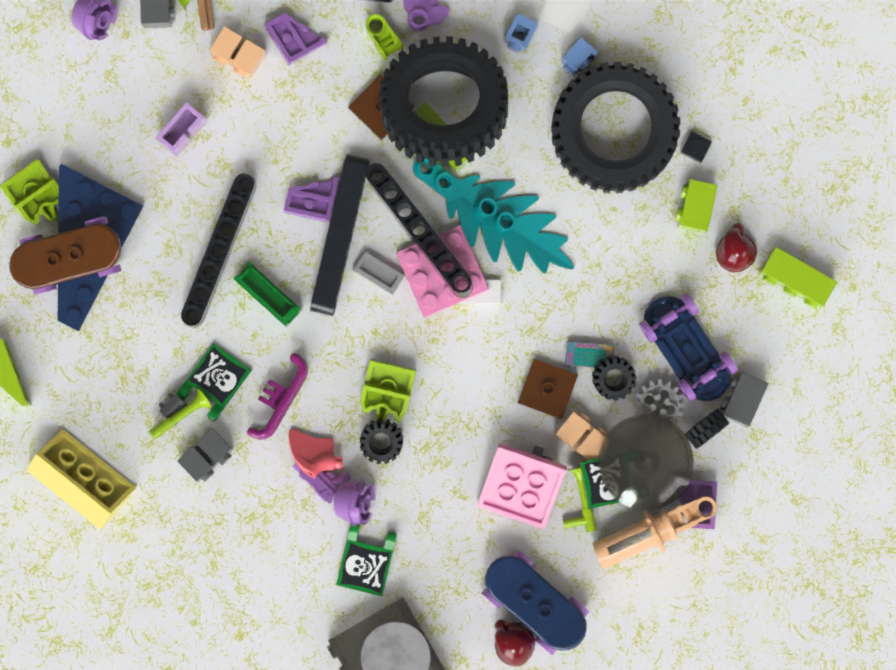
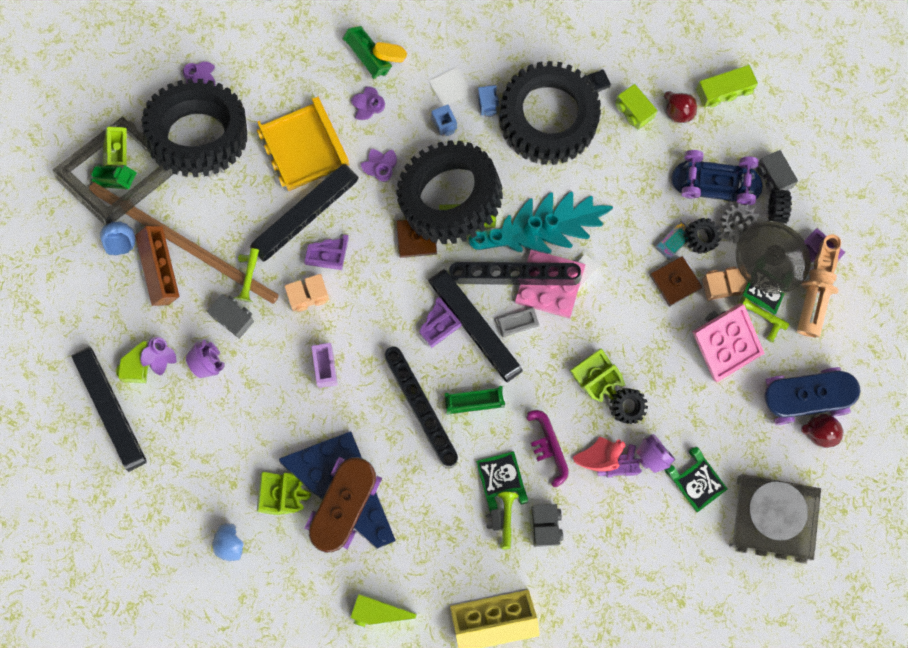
camera: 55 degrees left, 10 degrees down
(383, 37) = (376, 200): lime piece -> none

